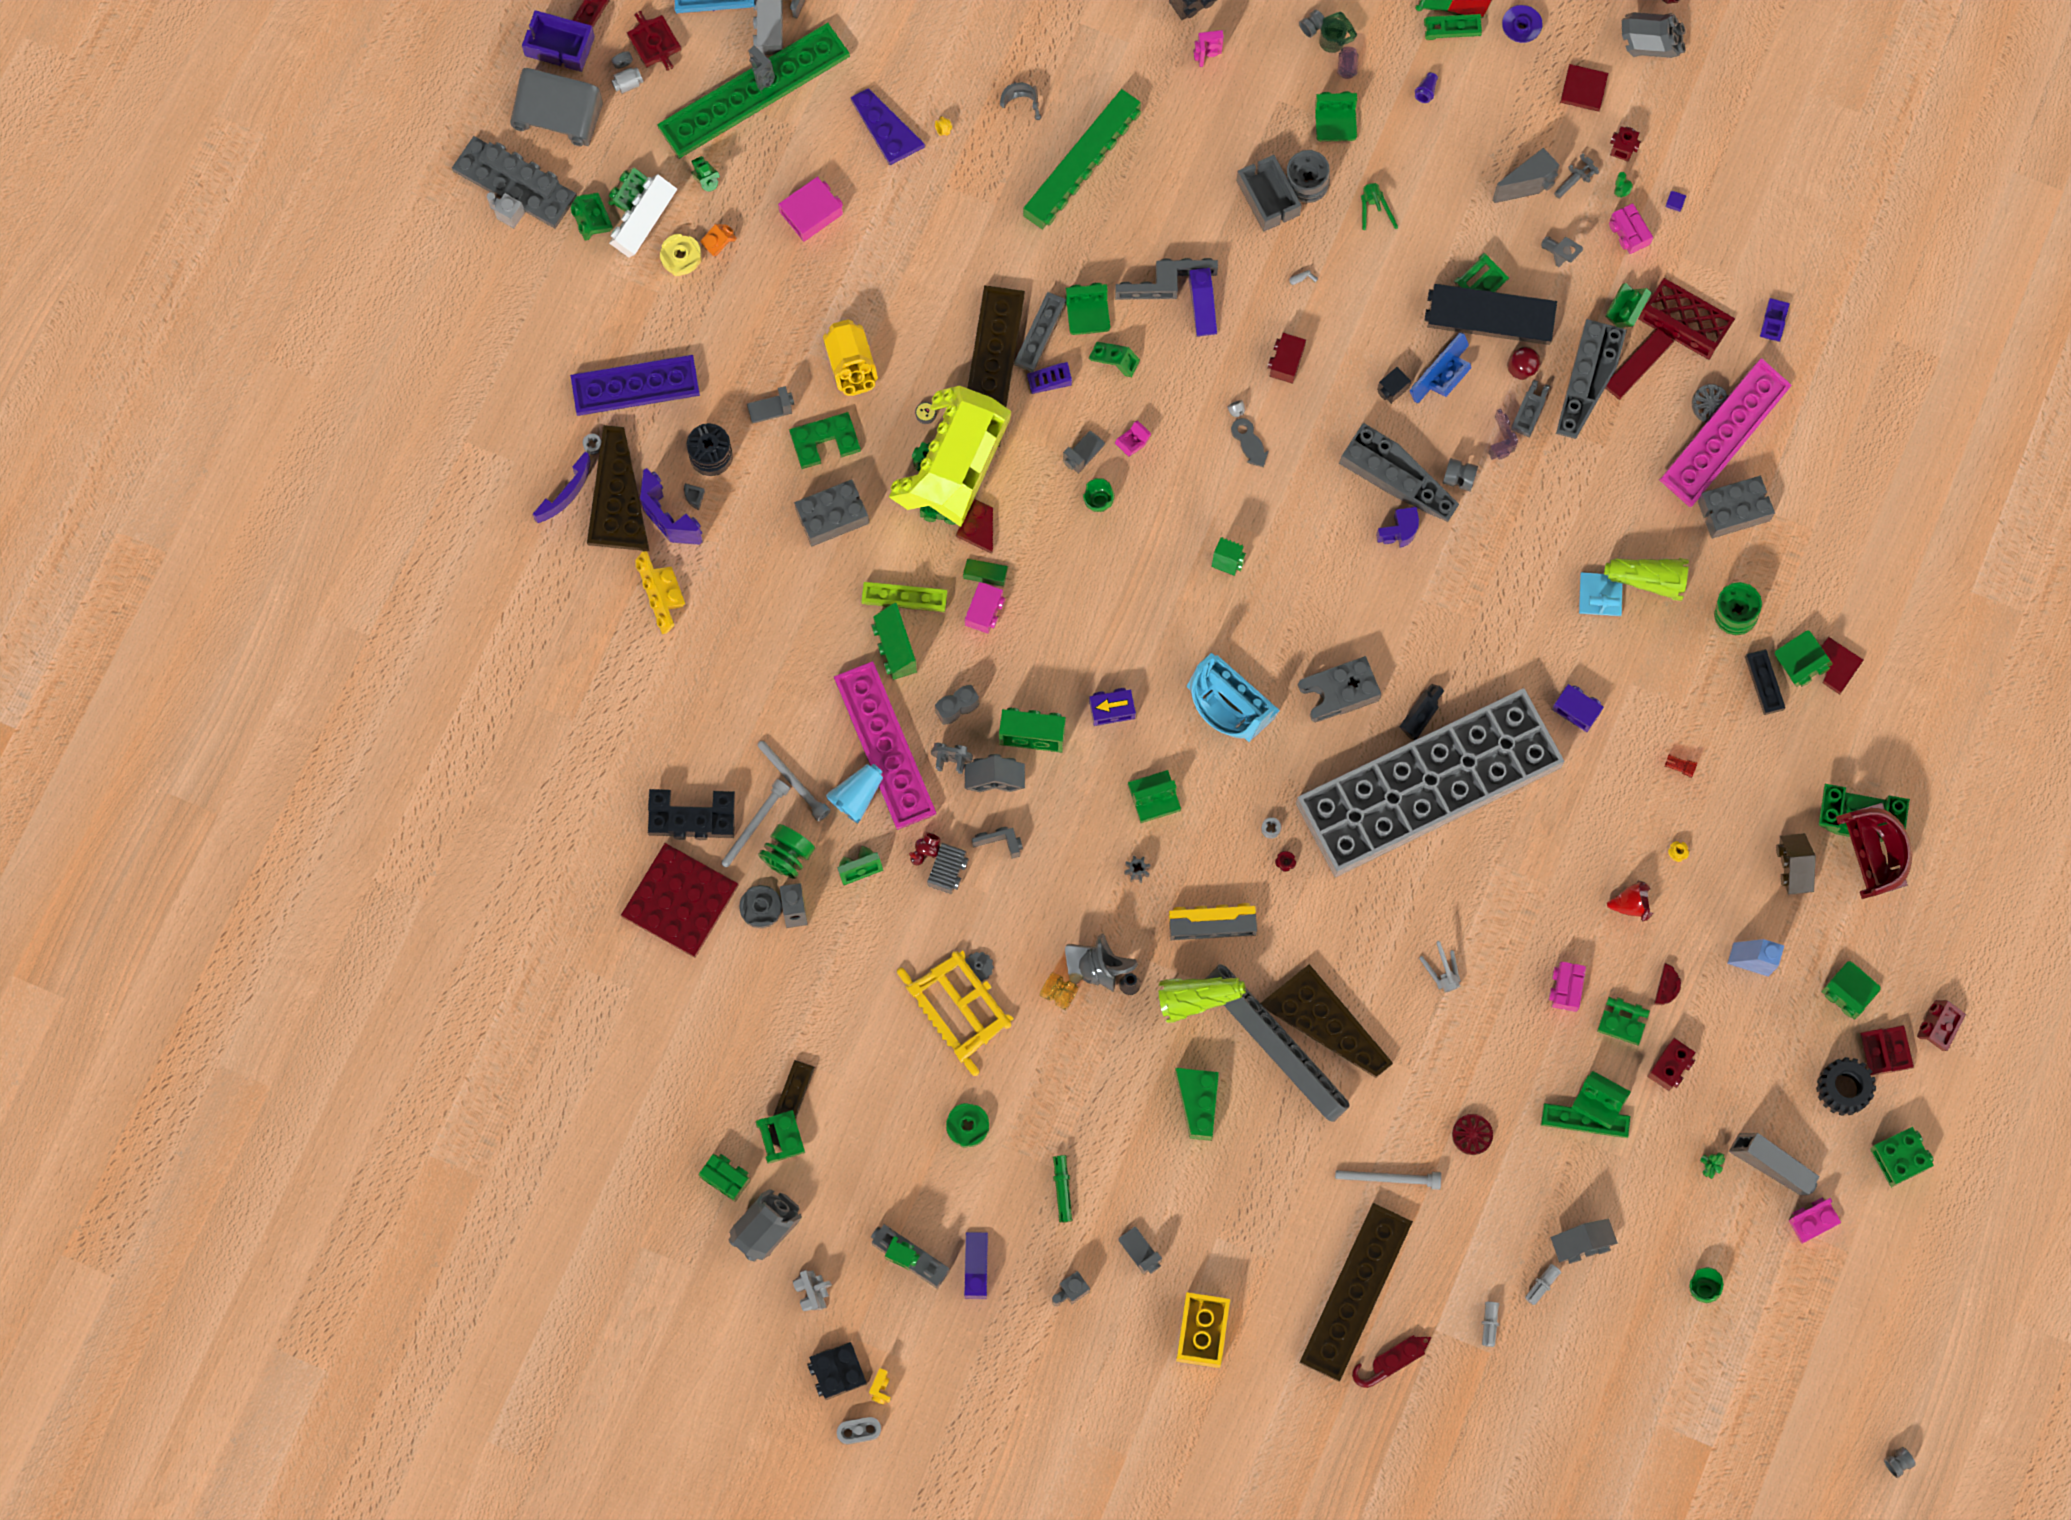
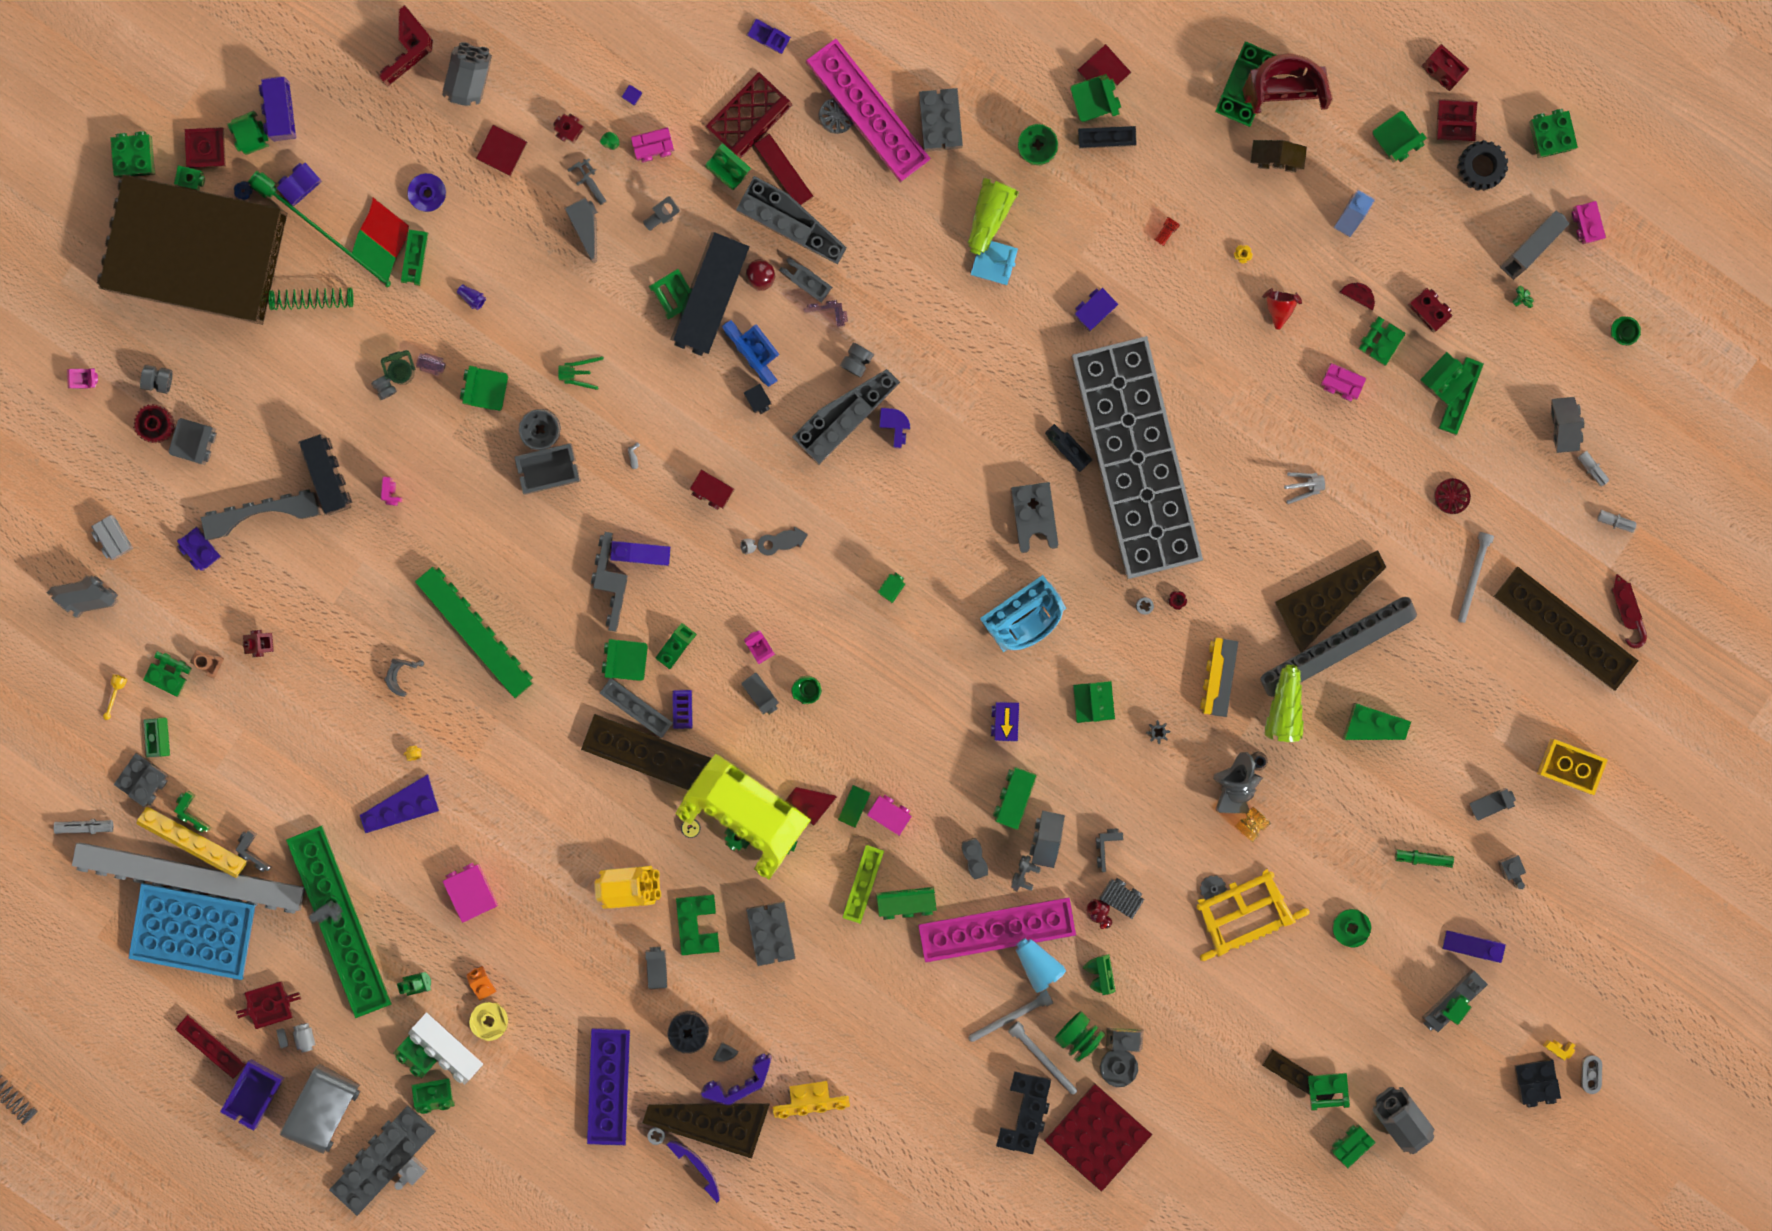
camera: 80 degrees left, 15 degrees up
(815, 1290) = (1465, 1087): light grey hips -> none

